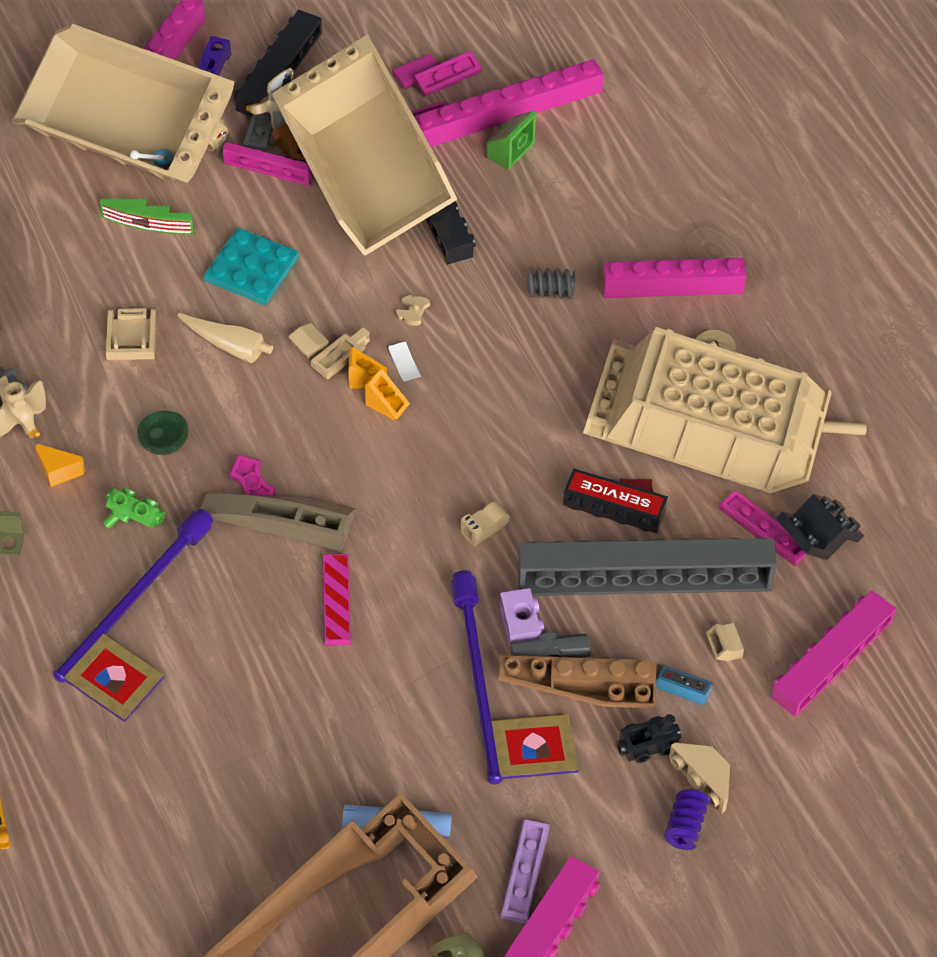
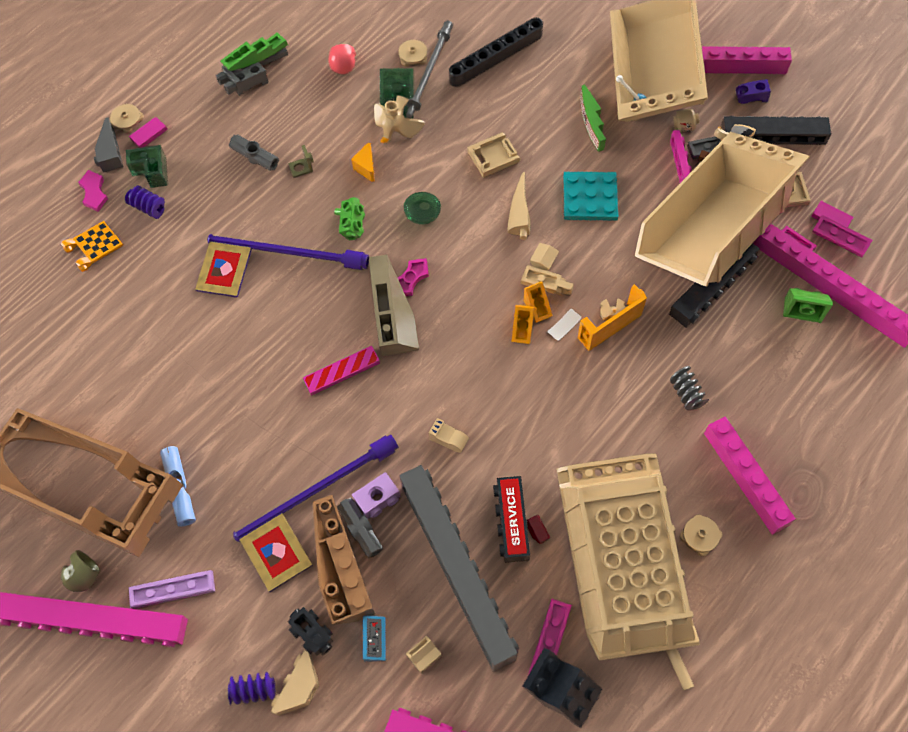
camera: 70 degrees right, 10 degrees up
(437, 332) = (592, 336): none -> light orange panel

